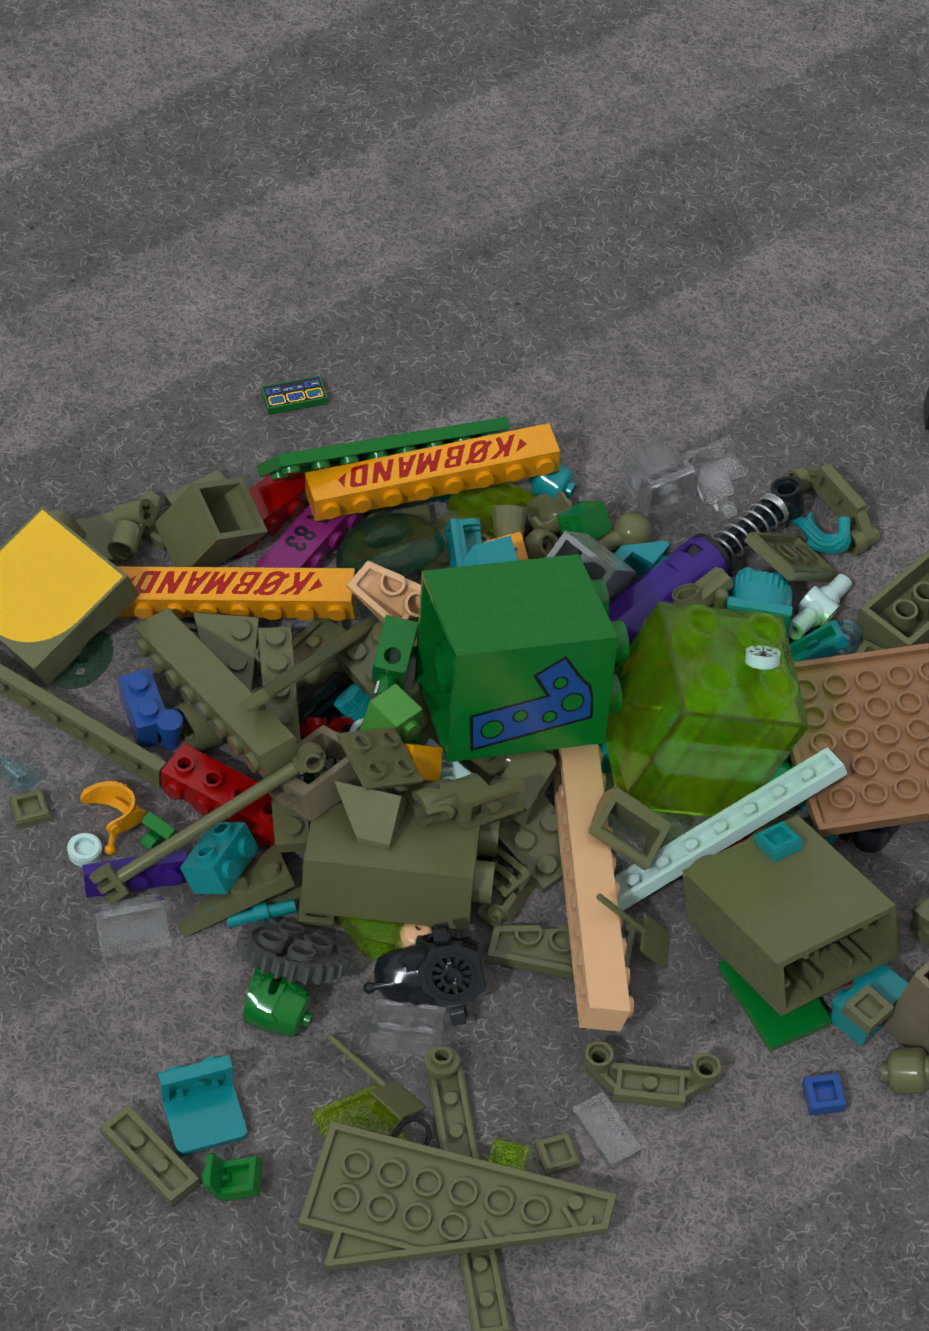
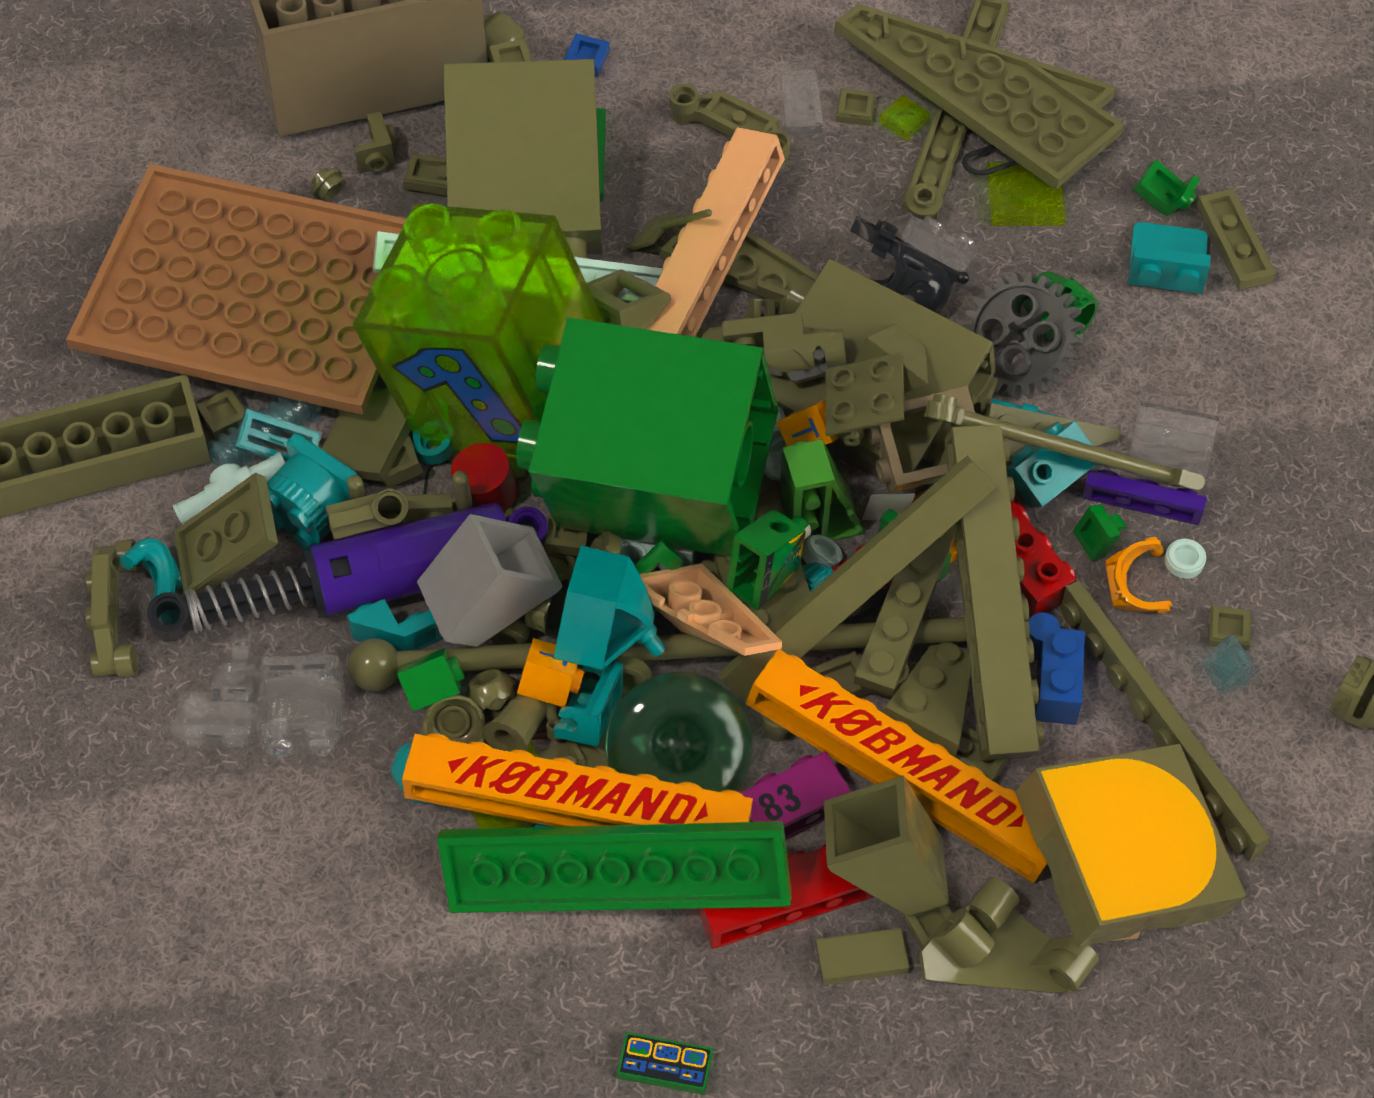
camera: 150 degrees left, 5 degrees up
(392, 1094) = (977, 200): olive piece -> none
(762, 657) = (423, 250): light aqua tile -> none
(778, 841) = (493, 195): teal tile -> none

